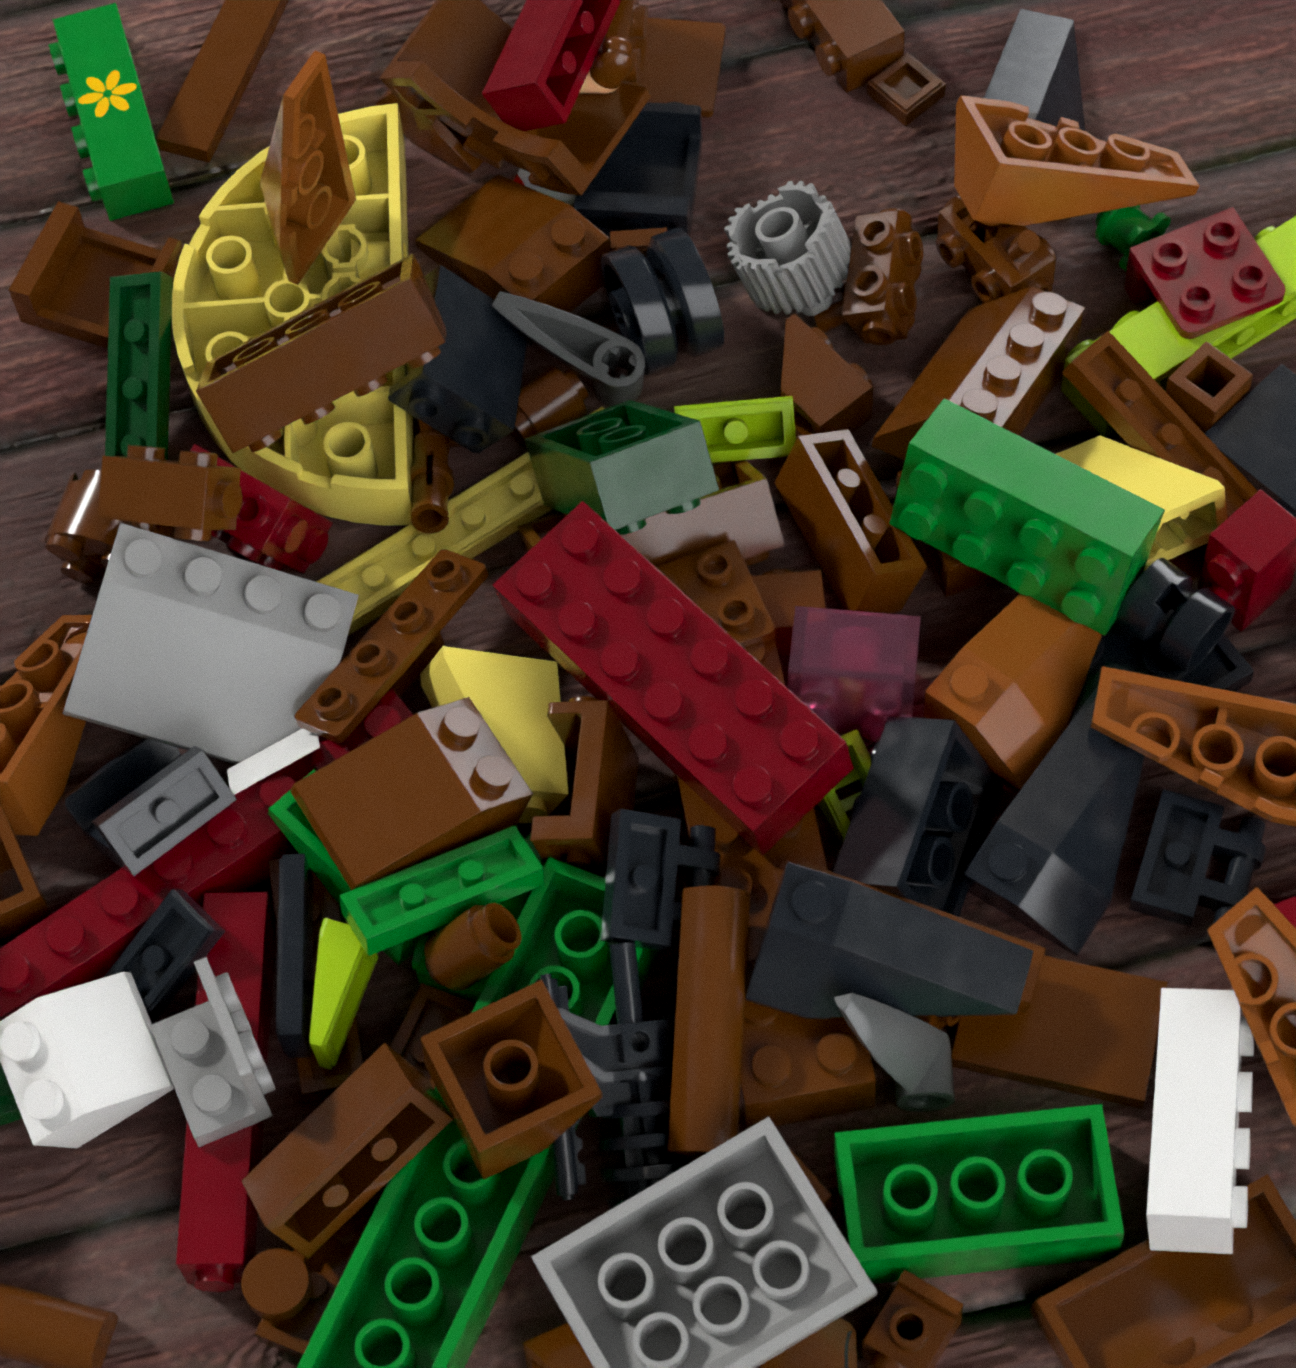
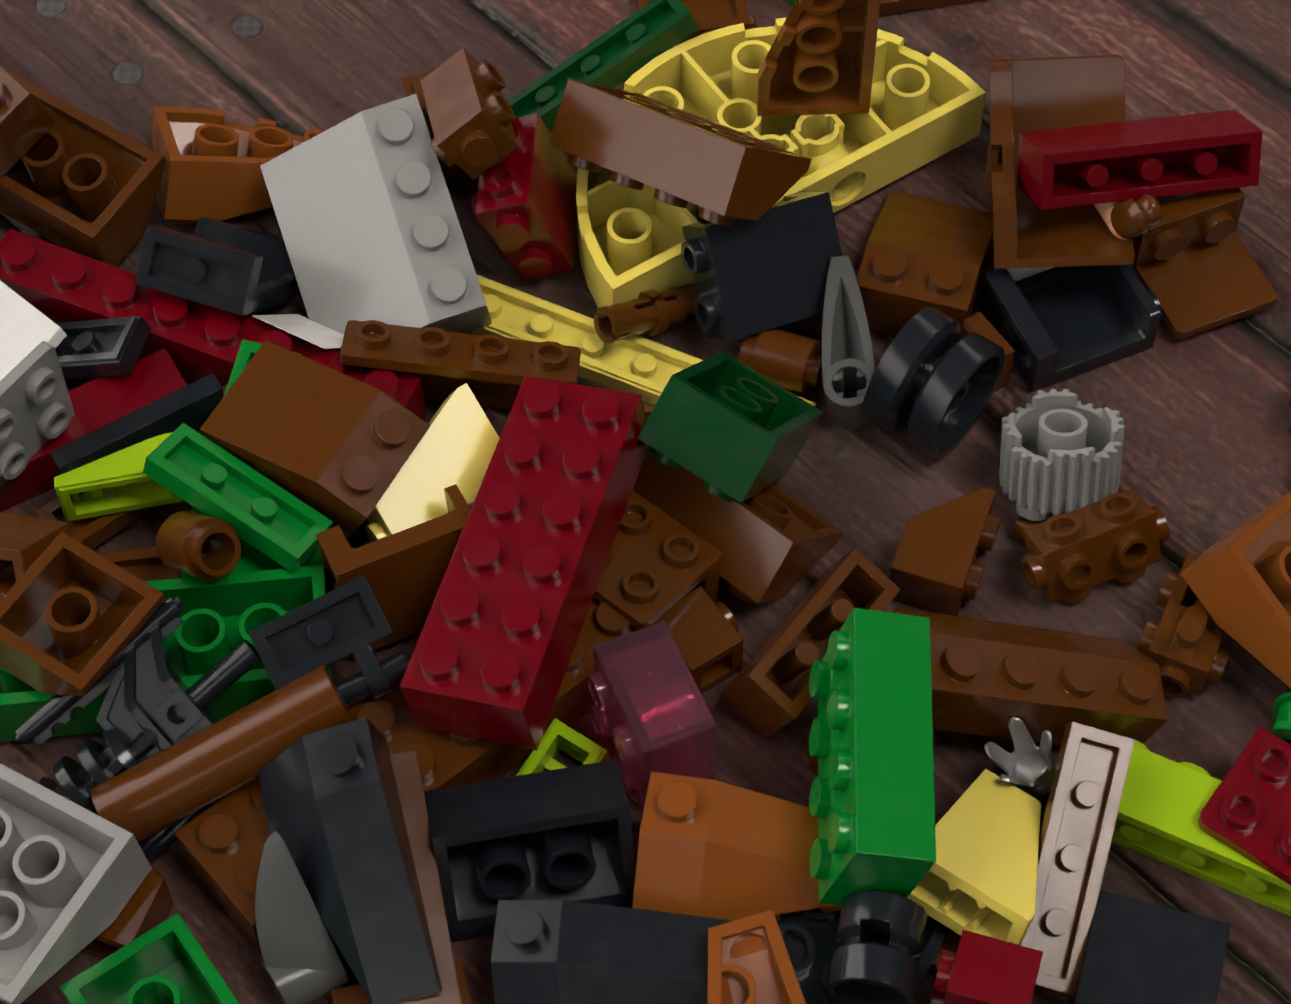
camera: 55 degrees right, 5 degrees down
(745, 427) = (849, 507): lime slope -> none
(1055, 428) = (1029, 765): none -> flat silver piece
(1208, 385) = (1156, 866): reddish brown brick -> none

